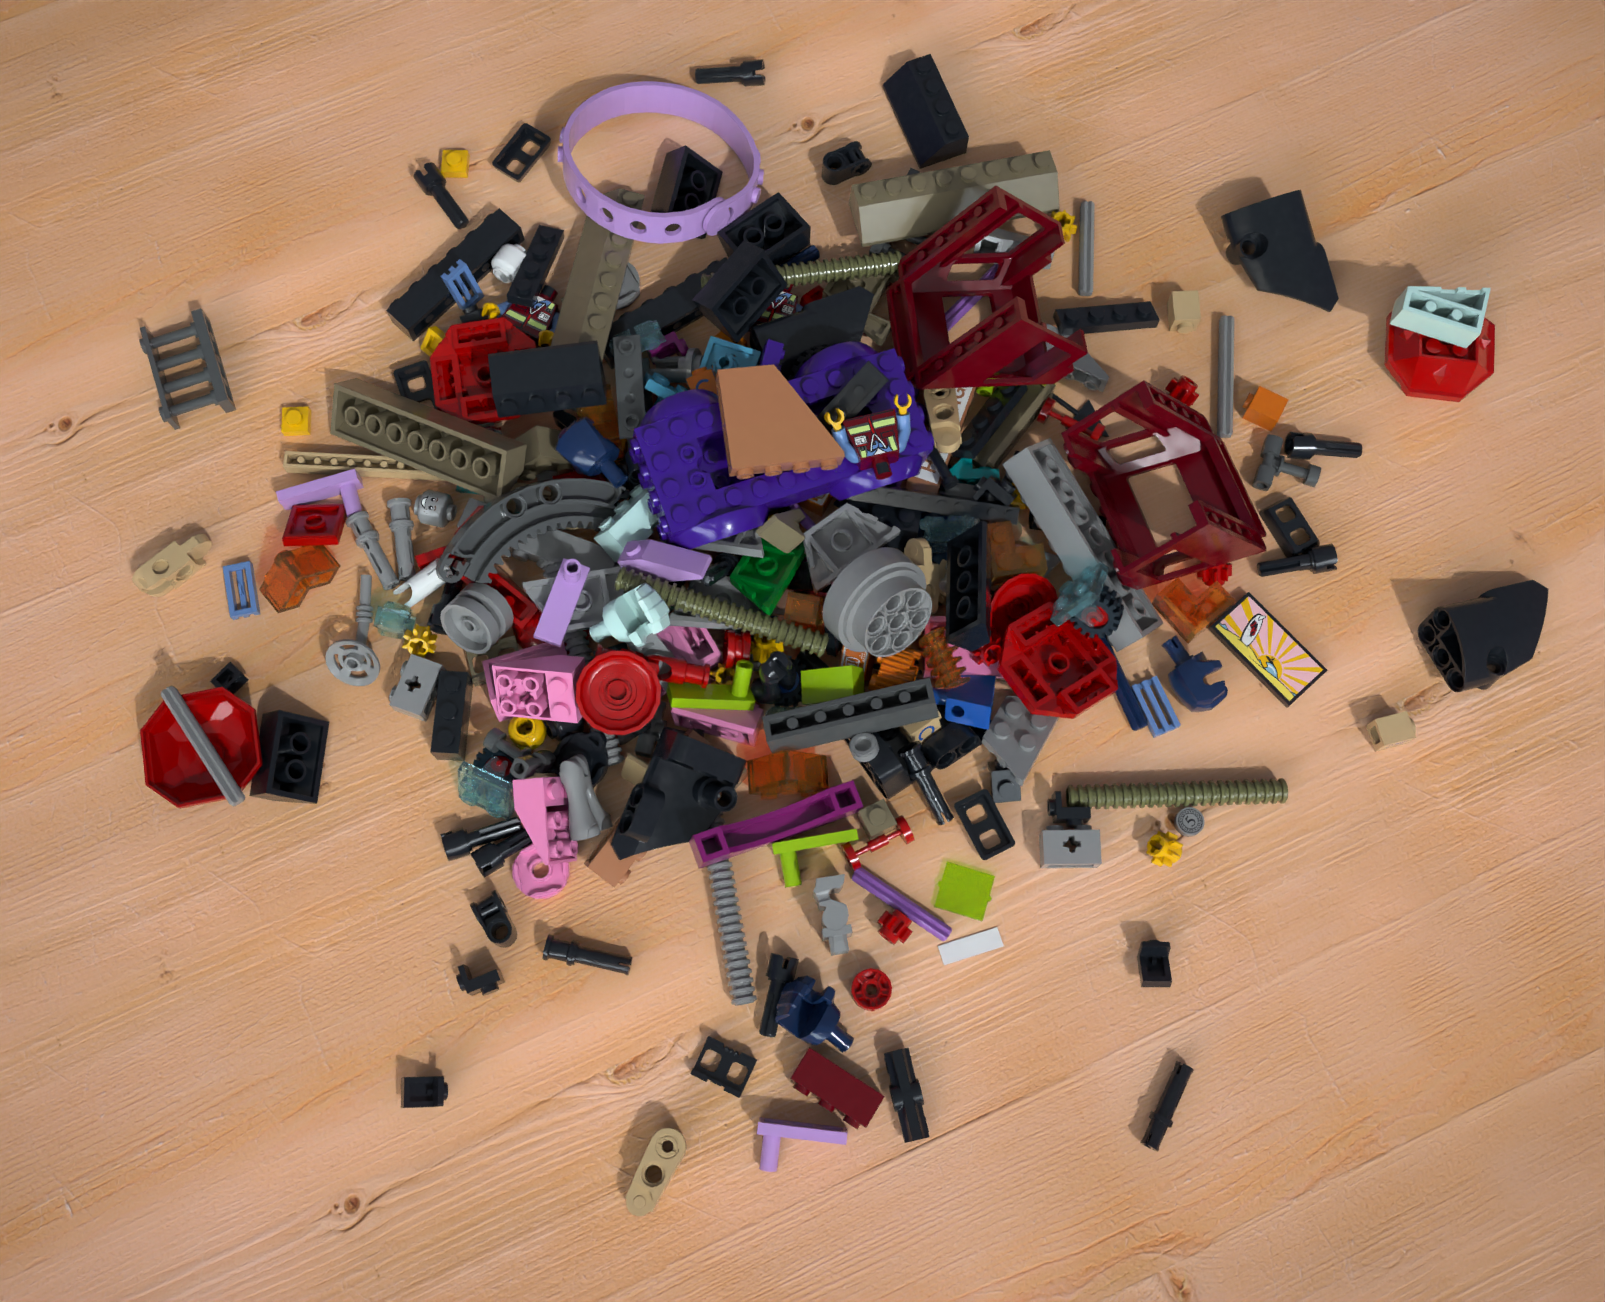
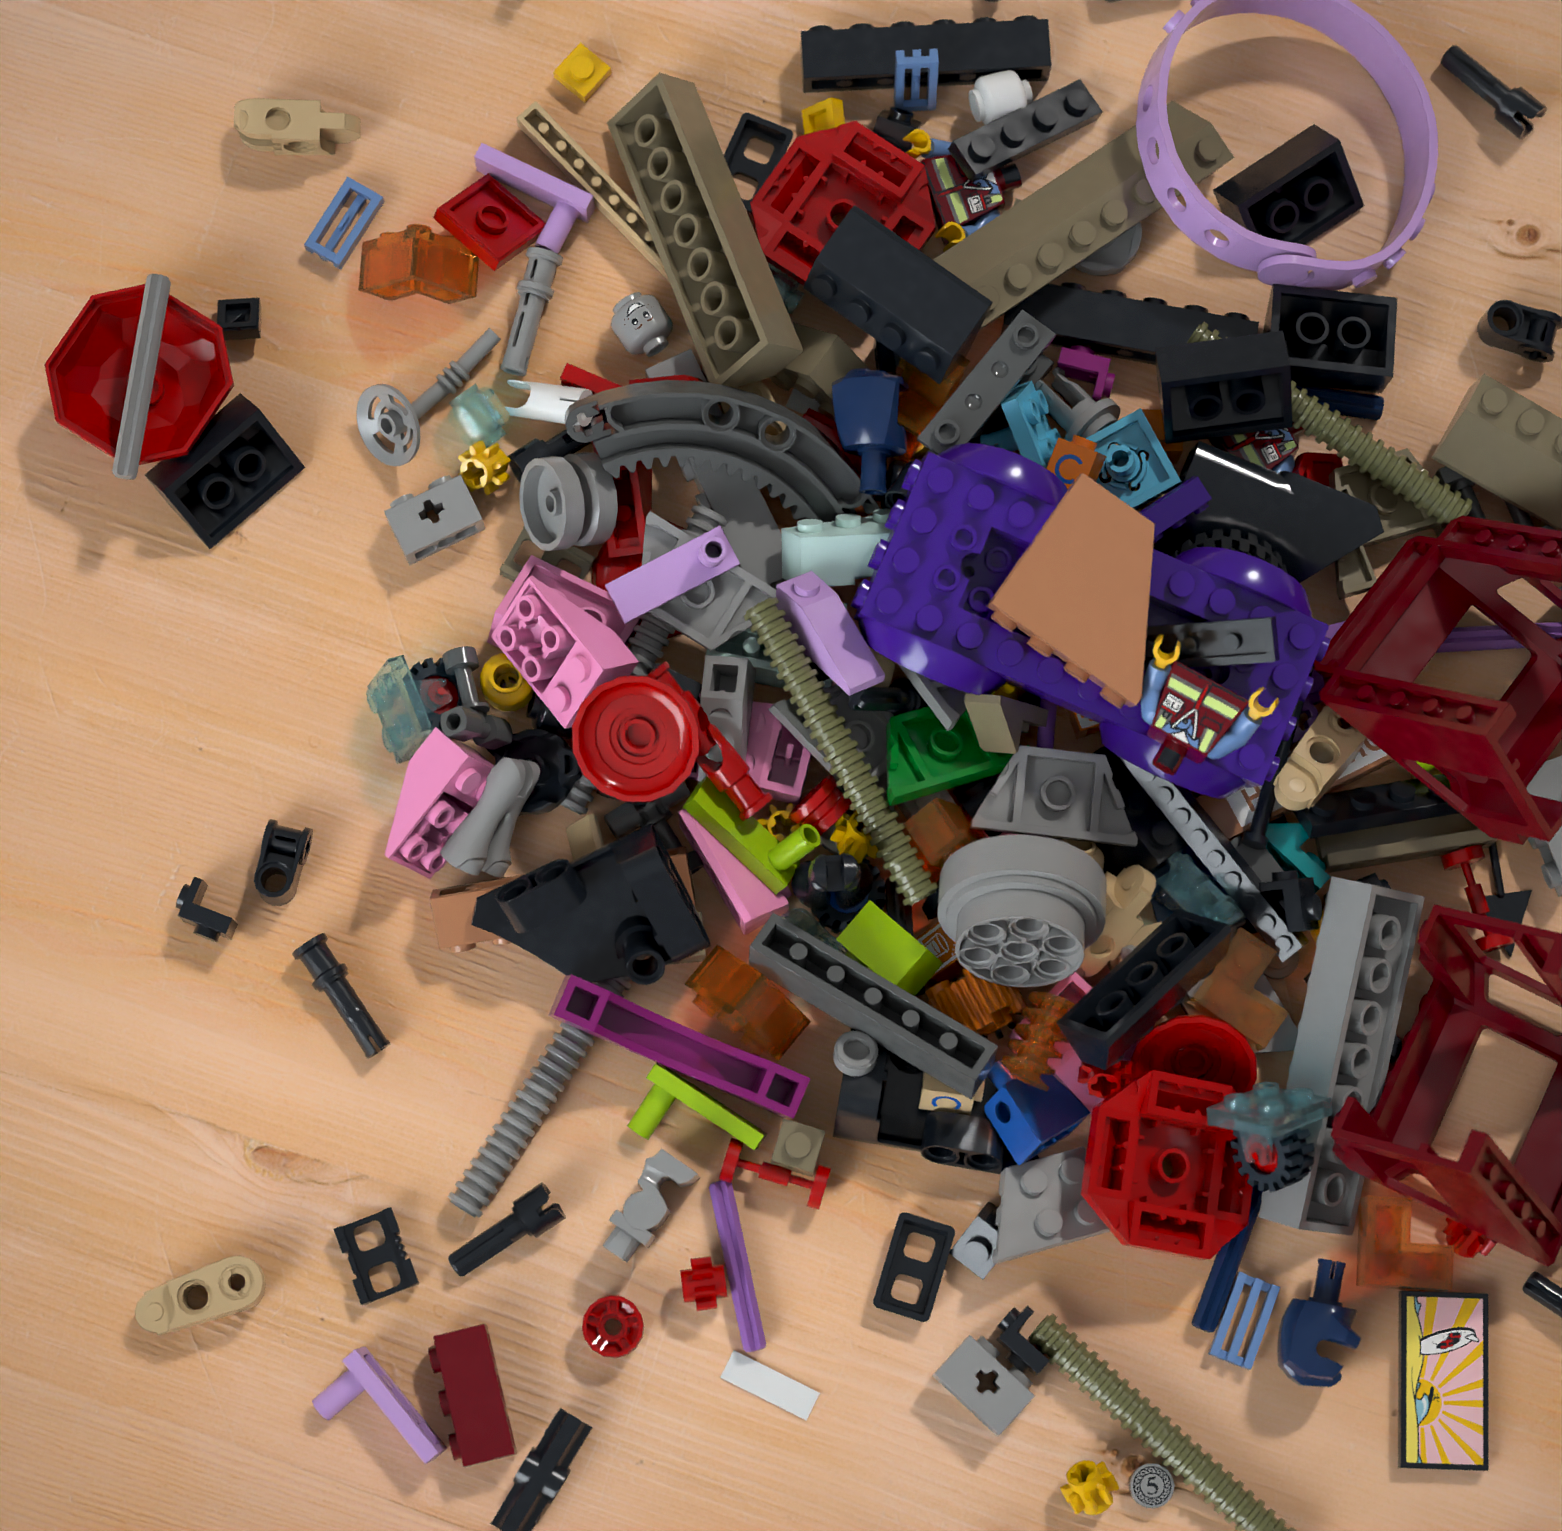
camera: 40 degrees right, 5 degrees up
(402, 526) = (584, 312): light grey pin -> none
(423, 1092) = (38, 977): black bracket -> none
(452, 716) = (442, 587): black brick -> none
(460, 842) = (323, 741): black piece -> none
(491, 856) = (340, 788): black piece -> none
(538, 887) = (355, 861): bright pink tile -> none
(633, 616) = (731, 667): light aqua piece -> none
(650, 335) = (1071, 336): clear light blue hinge -> none
(811, 1014) = (521, 1290): dark blue piece -> none
(921, 772) = (896, 1140): black pin -> none
(964, 891) = (821, 1319): clear neon green piece -> none

